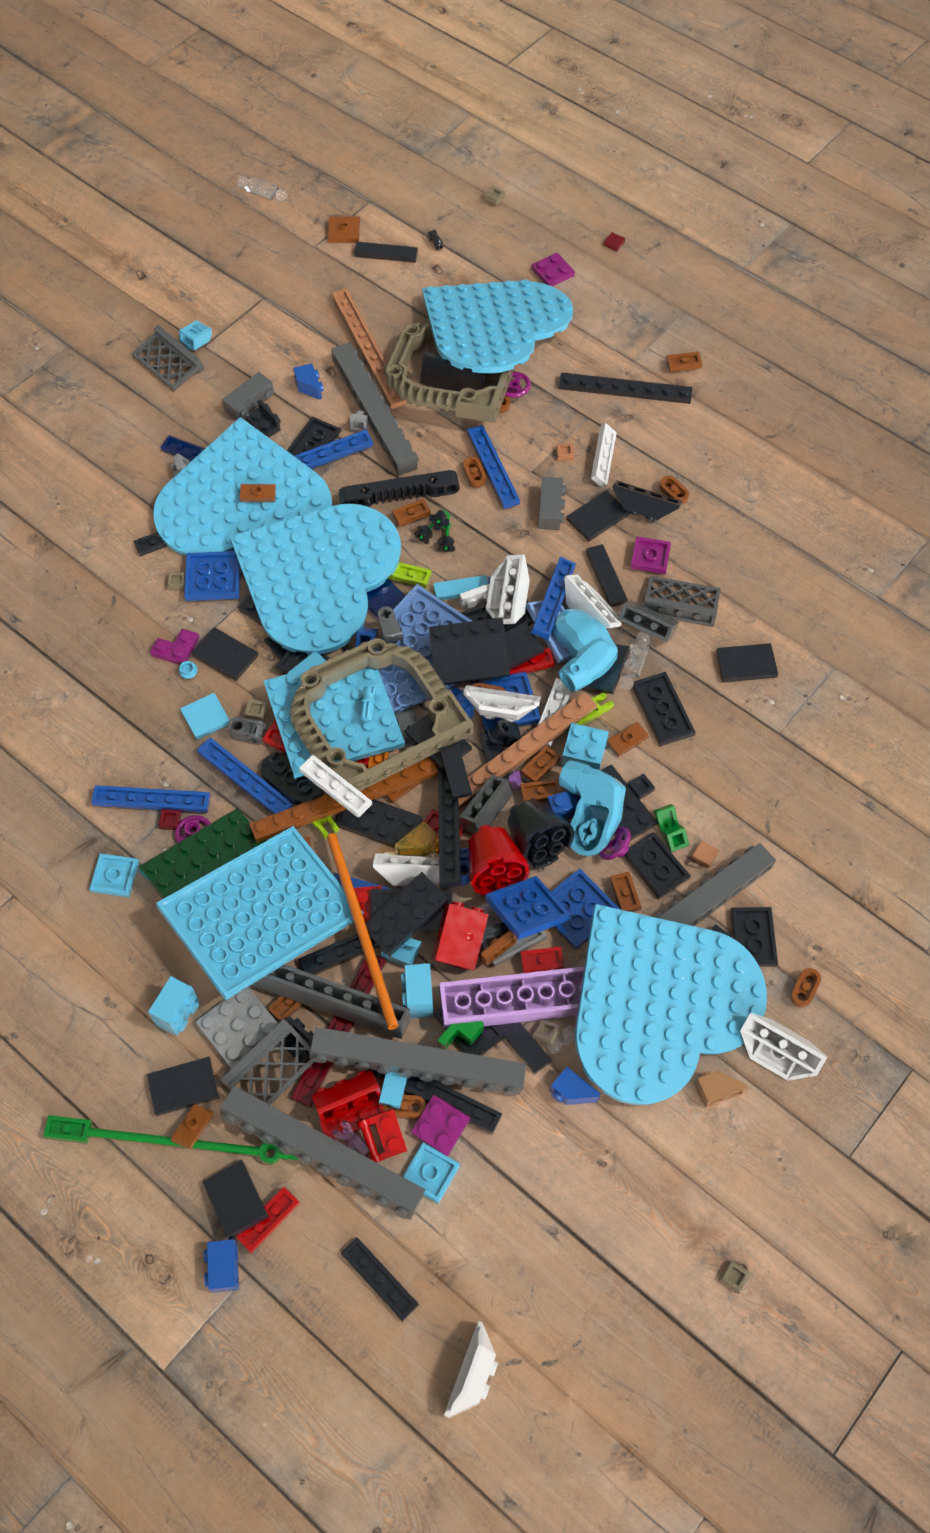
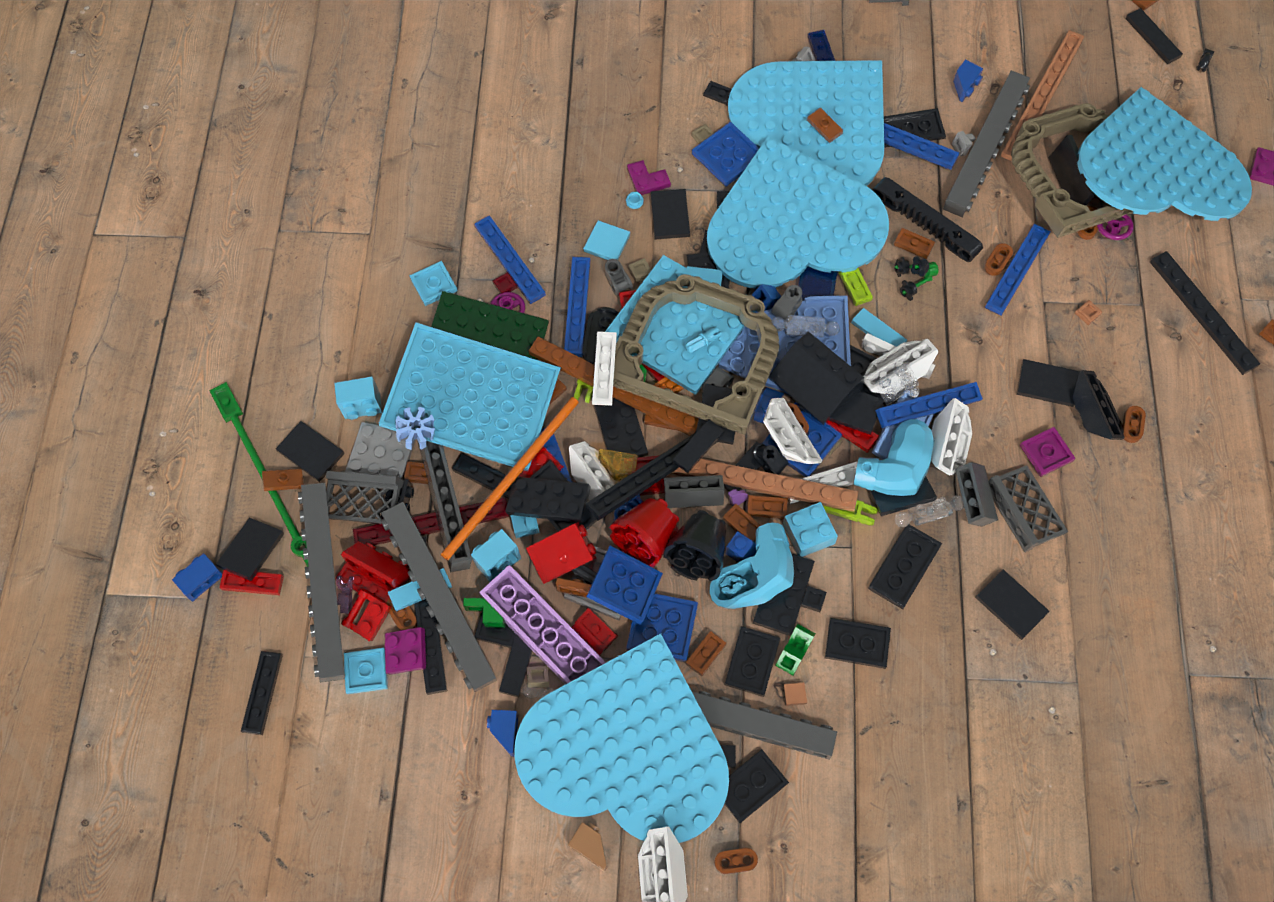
camera: 55 degrees right, 5 degrees up
(245, 397) = (911, 51): dark grey brick -> none
(247, 967) = (407, 425): none -> light blue gear
(264, 419) = (898, 79): black bracket -> none
(419, 627) = (802, 324): none -> clear plate
(474, 1373) = (234, 811): white wedge -> none
(524, 597) = (898, 383): none -> clear hinge
(551, 503) = (1023, 338): dark grey brick -> none
(603, 455) = (1113, 343): white plate -> none
(606, 575) = (994, 431): black tile -> none
(617, 845) = (742, 617): magenta piece -> none
(627, 739) = (850, 558): dark orange plate -> none
(697, 783) = (857, 643): none -> black tile

